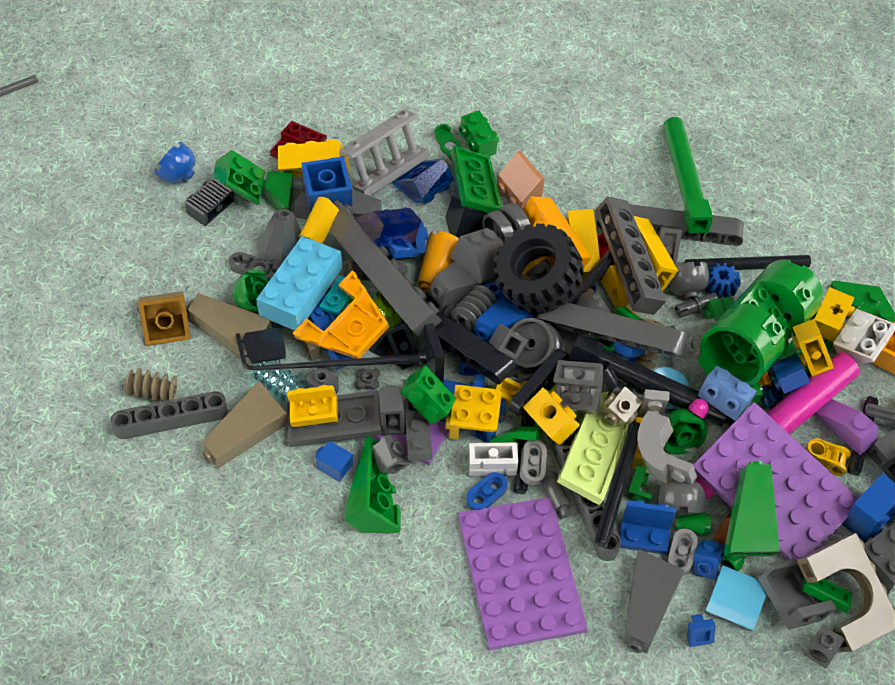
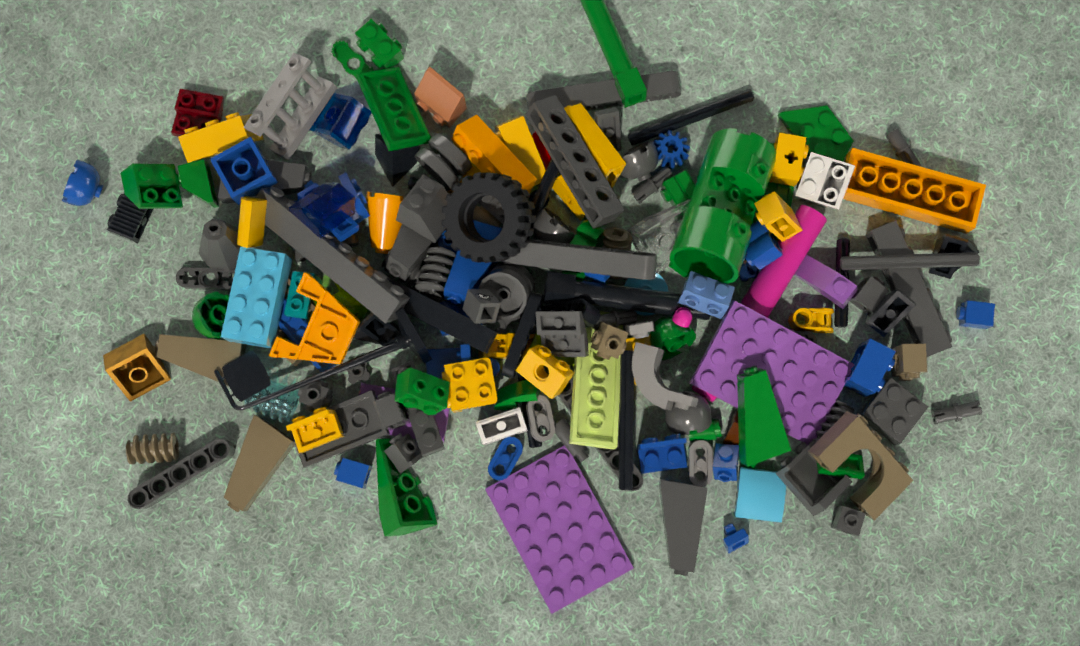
camera: 10 degrees left, 25 degrees up
(640, 479) = (644, 410): green bracket -> none

